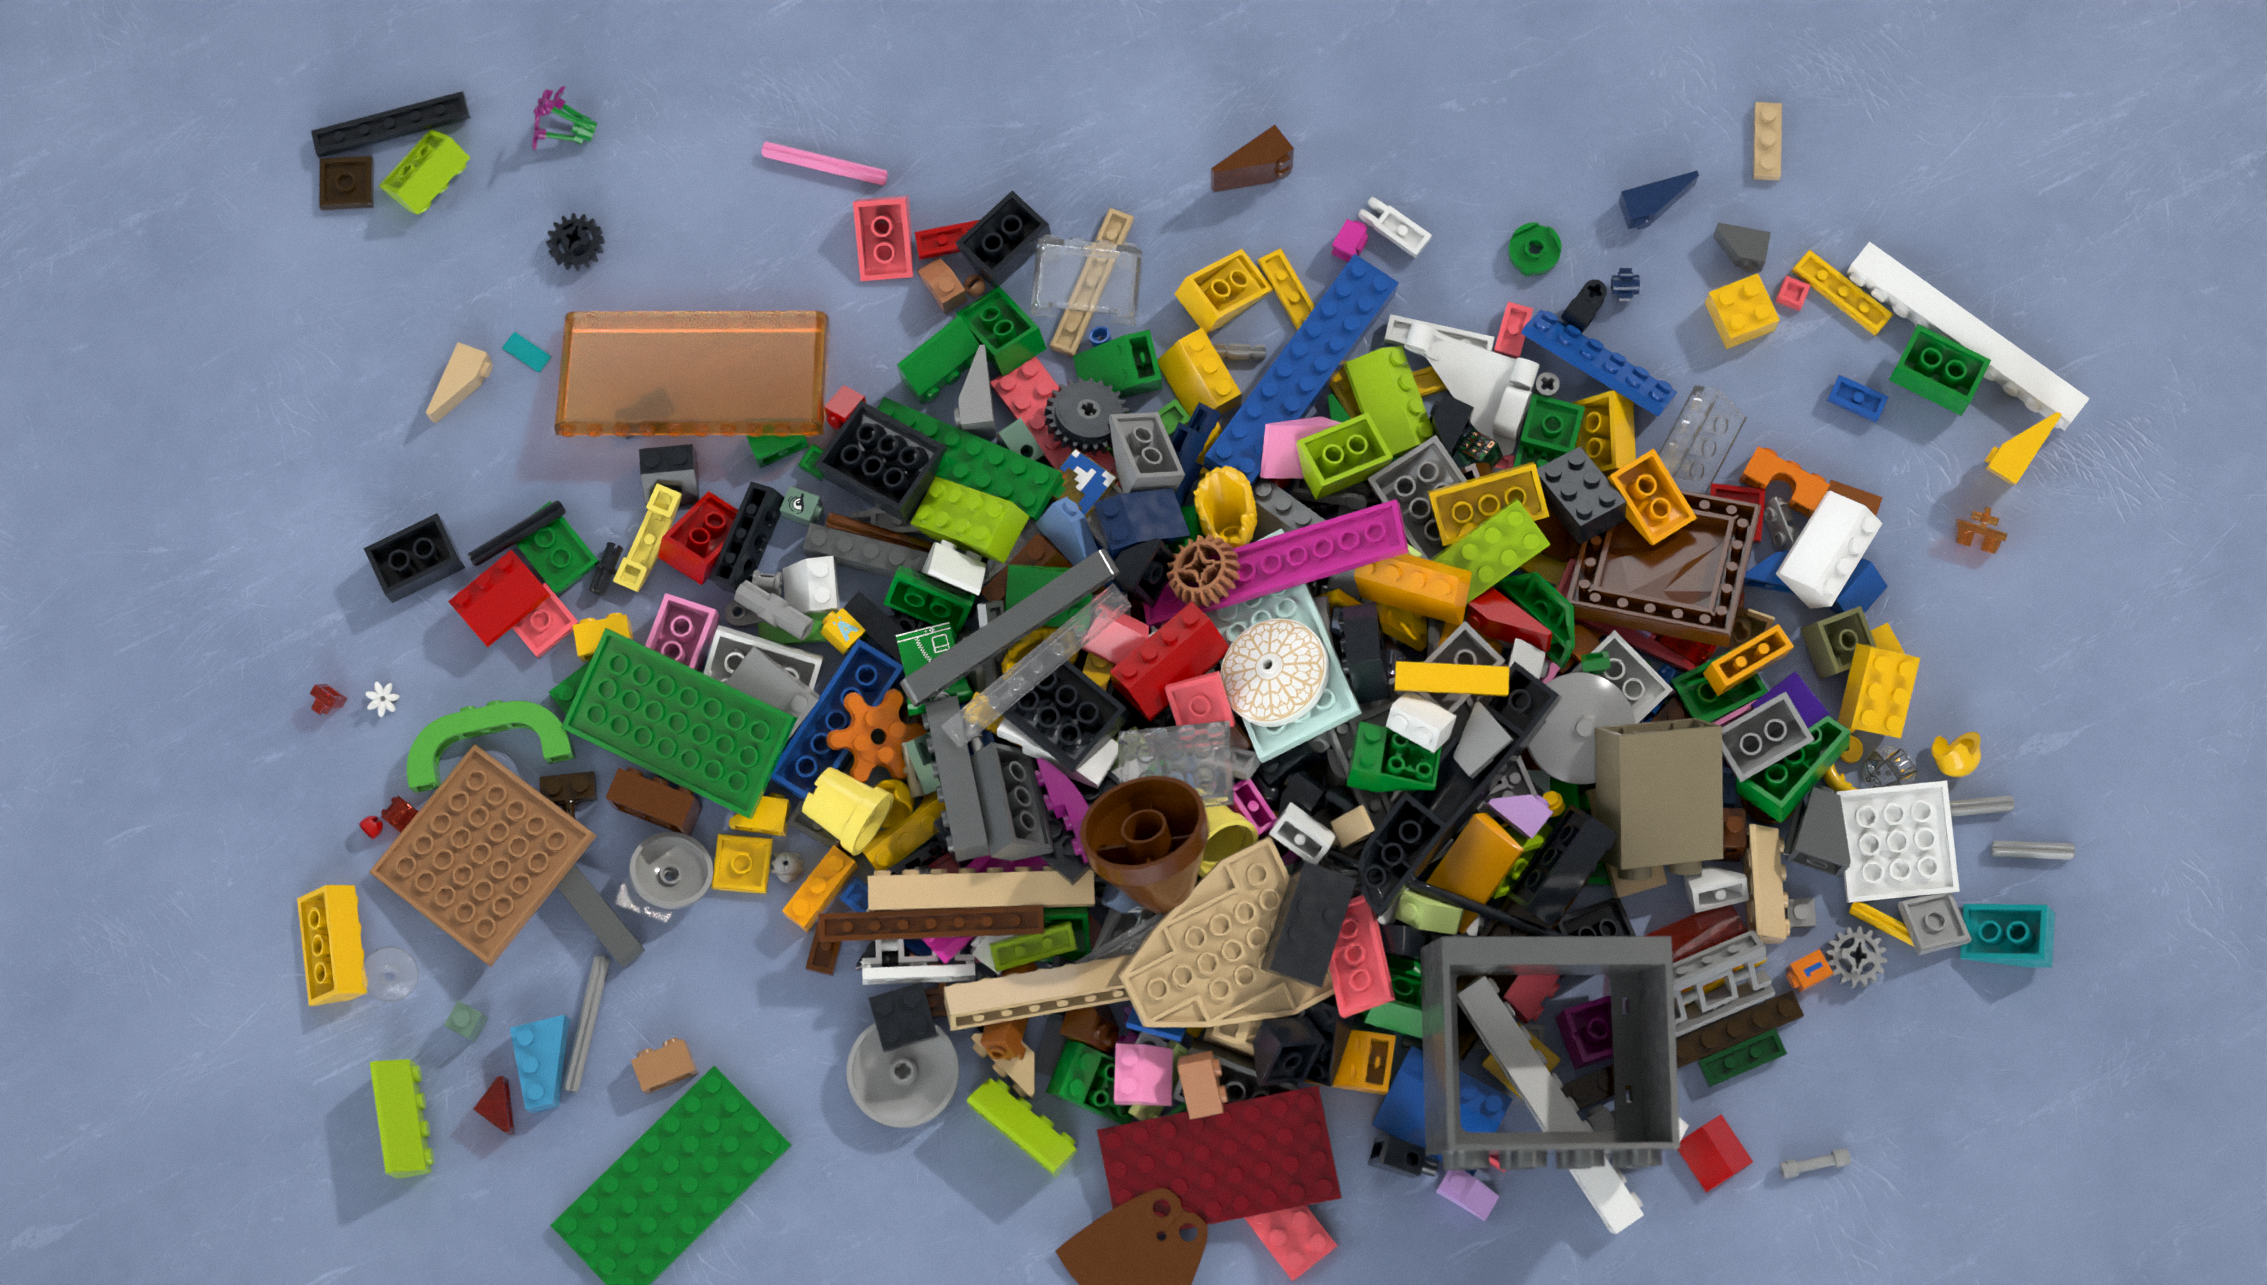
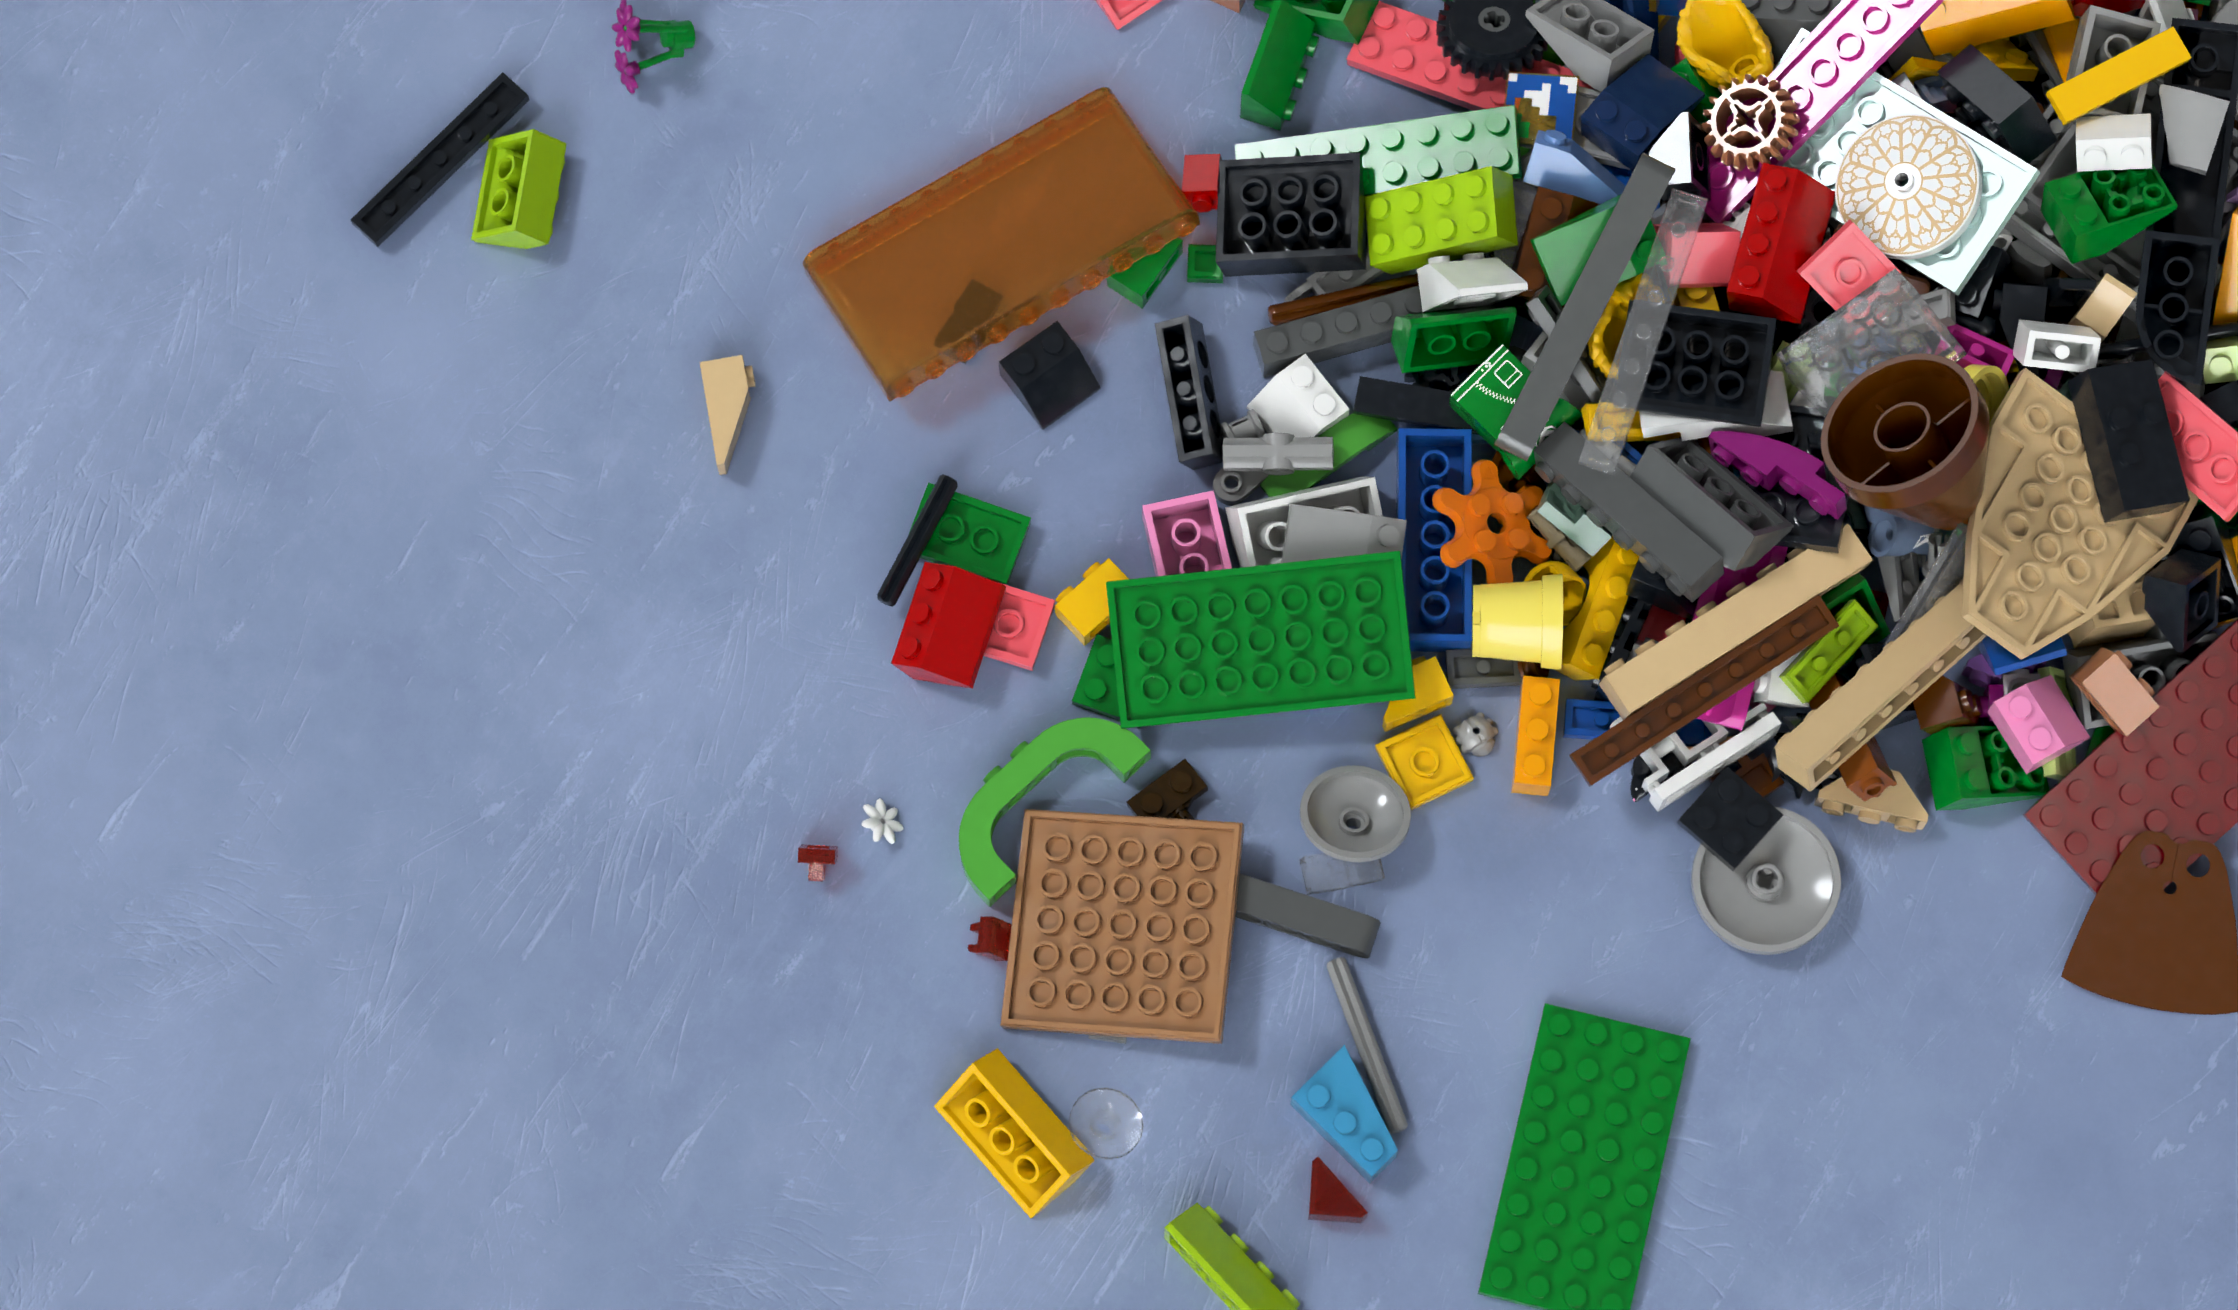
camera: 35 degrees left, 0 degrees up
(346, 183) = (431, 257): dark brown tile -> none
(371, 826) = (967, 974): red hinge -> none
(414, 558) = (815, 638): black brick -> none
(466, 1021) = (1230, 1123): sand green brick -> none
(526, 352) = (779, 331): teal sticker -> none
(581, 251) = (740, 174): black gear -> none
(605, 569) = (1043, 523): black axle -> none
(645, 548) = (1071, 458): light yellow slope -> none
(654, 801) = (1284, 748): reddish brown brick -> none
(664, 1066) = (1490, 1037): medium nougat brick -> none
(698, 538) = (1134, 423): red slope -> none
(801, 507) = (1226, 322): sand green brick -> none
(823, 955) = (1584, 803): reddish brown plate -> none
(842, 630) = (1371, 431): yellow brick -> none
(975, 400) = (1354, 86): light grey slope -> none
(1019, 439) = (1431, 99): sand green torso -> none
(1022, 1126) = (1939, 862): lime slope -> none
(1050, 1048) = (1907, 753): clear smoke tile -> none

